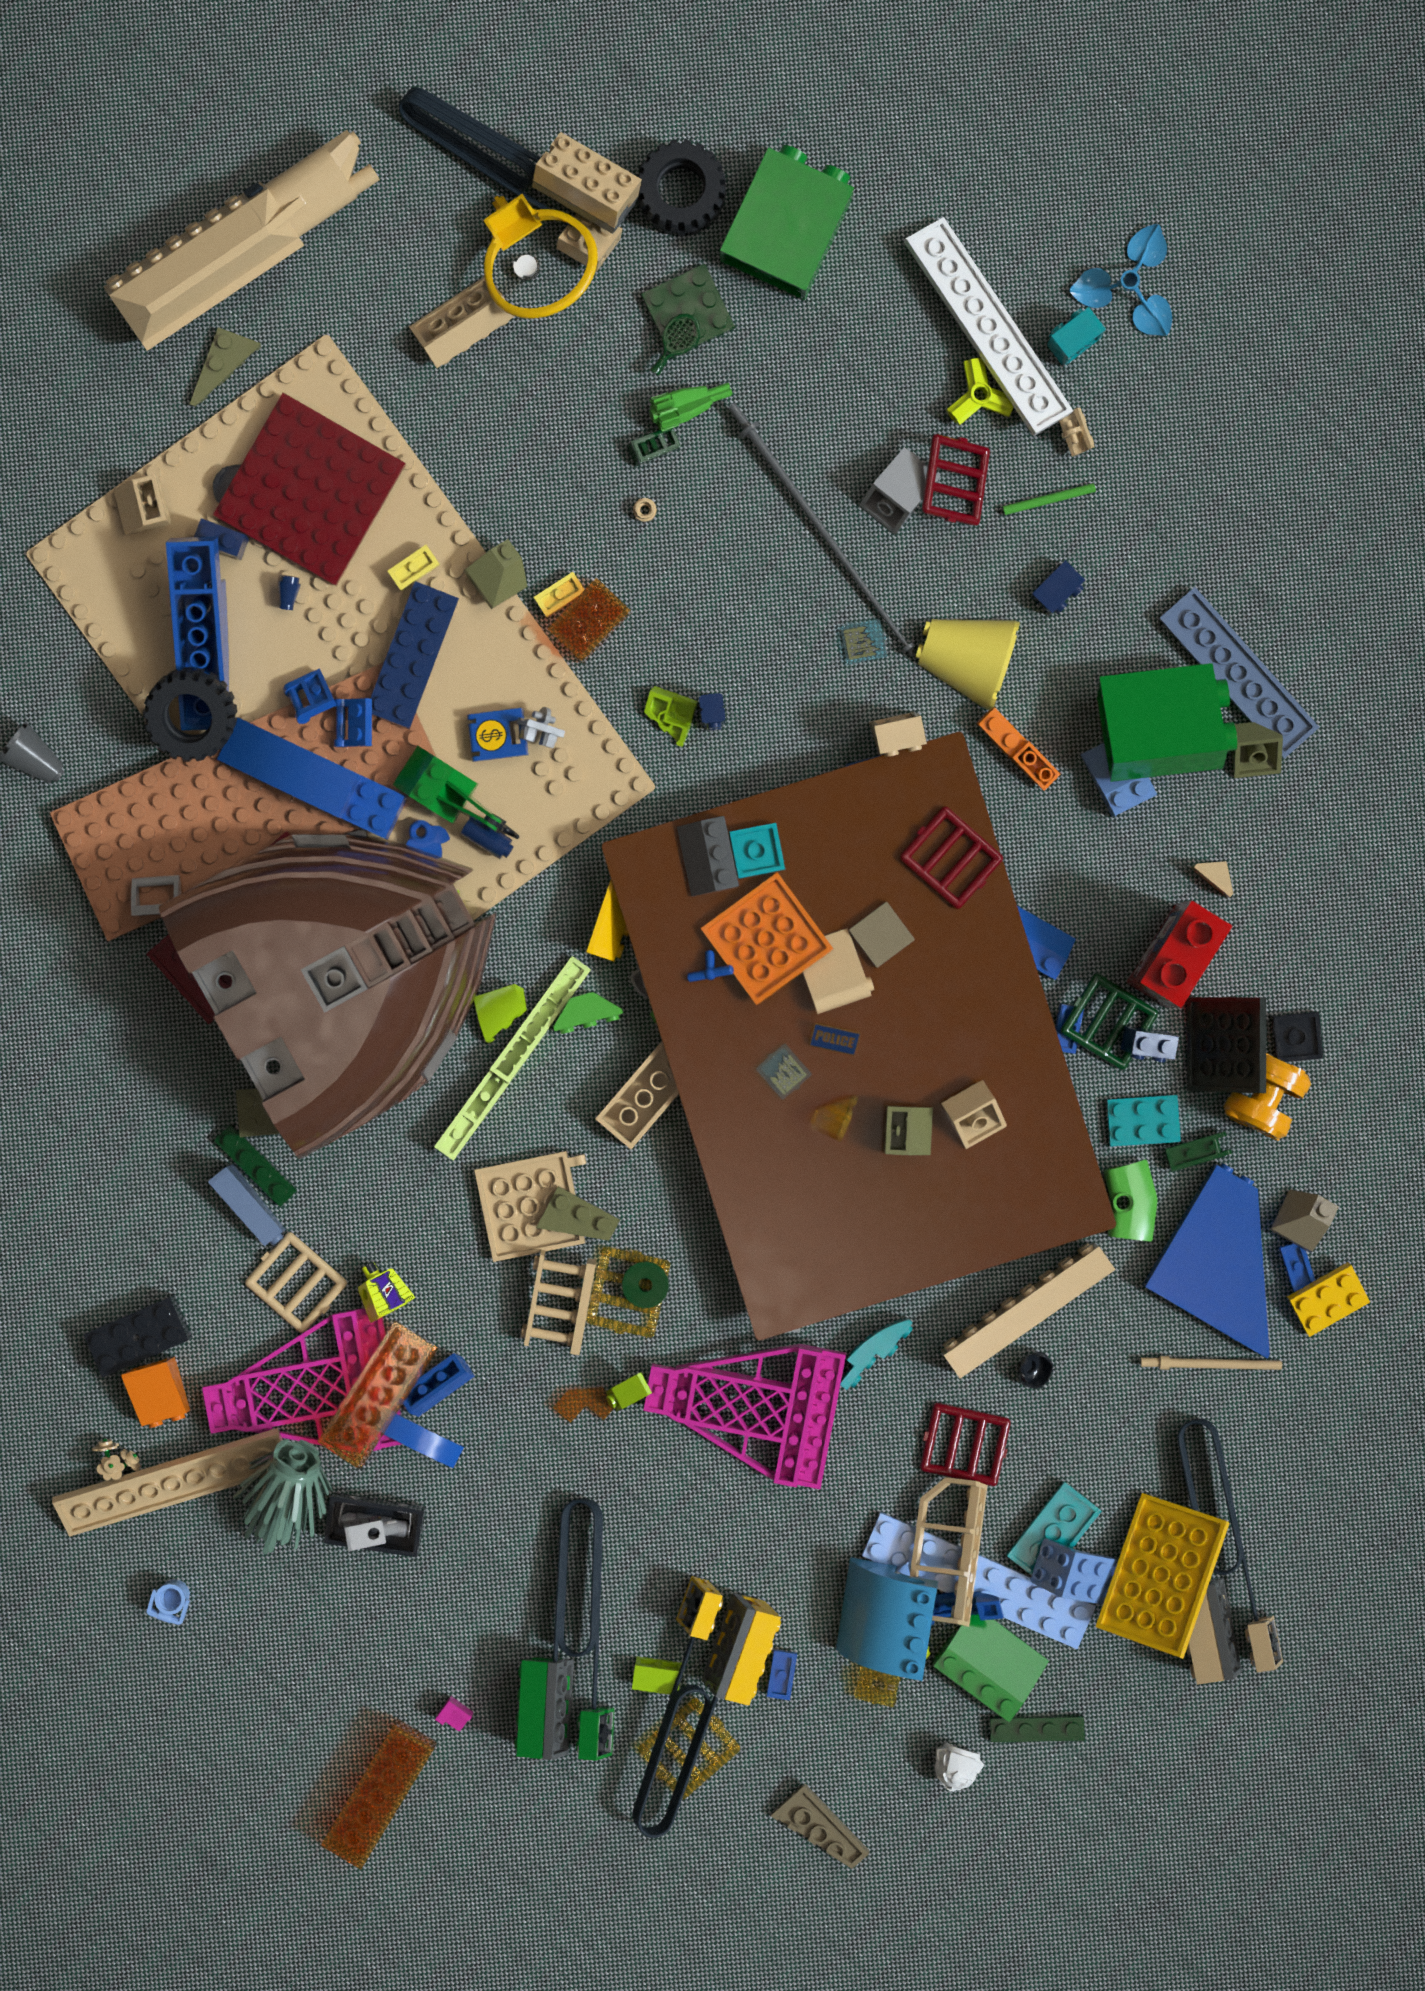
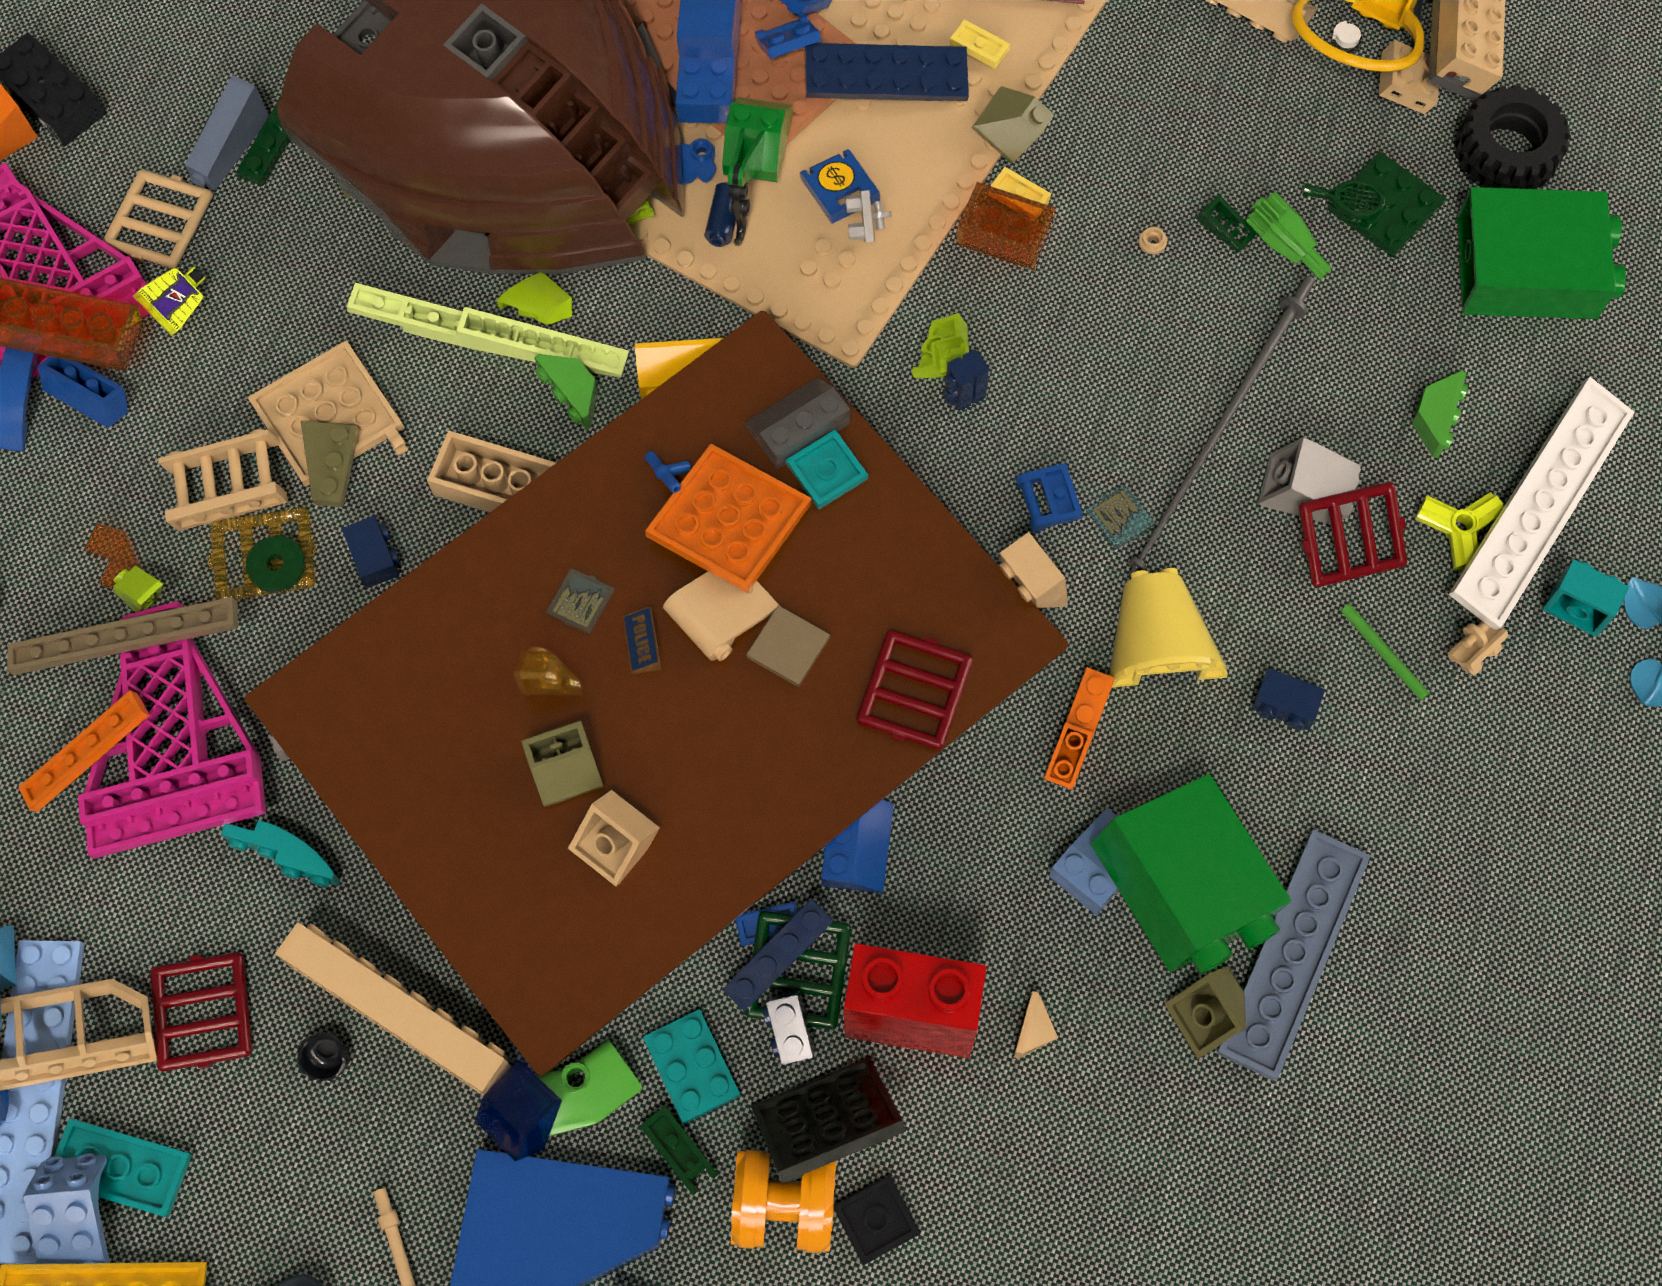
camera: 65 degrees right, 20 degrees down
(663, 1210) = (370, 551): none -> dark blue brick
(665, 1414) = (122, 636): none -> dark tan plate
(742, 1468) = (83, 751): none -> orange plate
(827, 680) = (1058, 493): none -> blue plate
(881, 363) = (1439, 411): none -> bright green slope
(1097, 1031) = (778, 955): none -> dark blue plate
(1134, 1249) = (519, 1112): none -> clear blue slope

